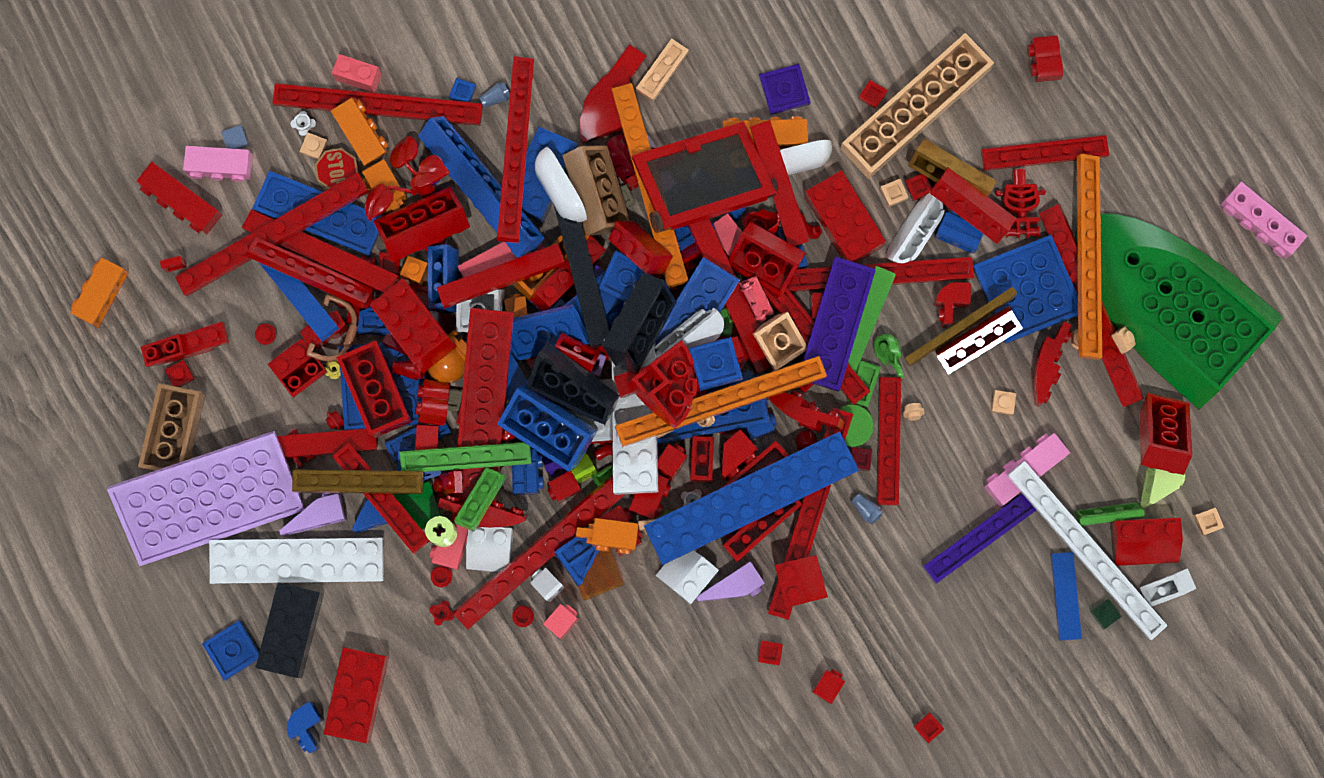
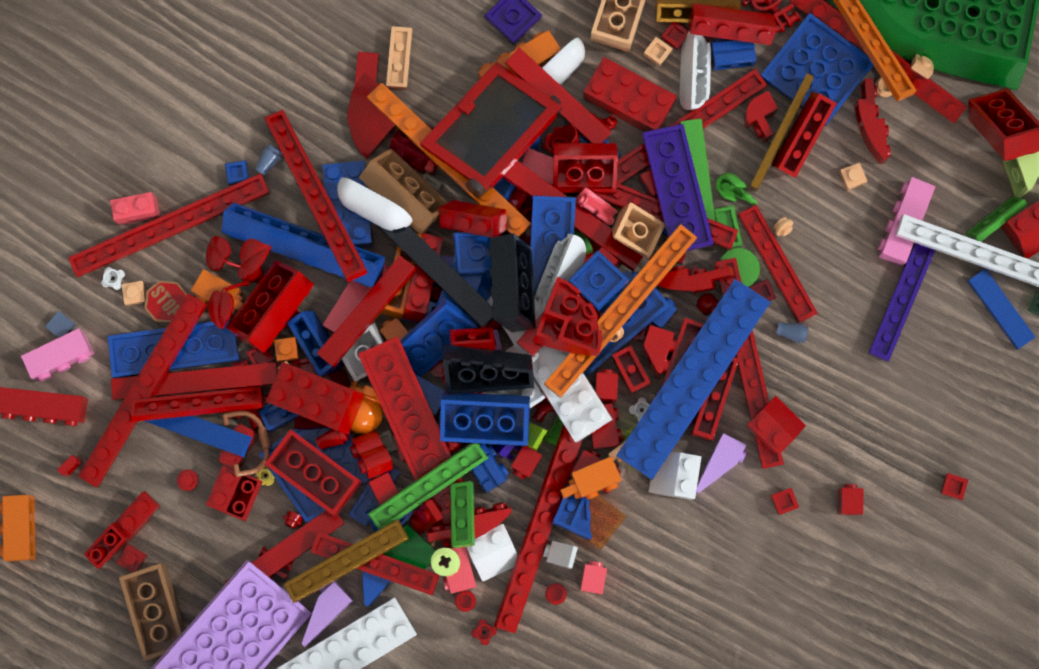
camera: 30 degrees left, 0 degrees up
(360, 131) = (168, 256): orange brick -> none

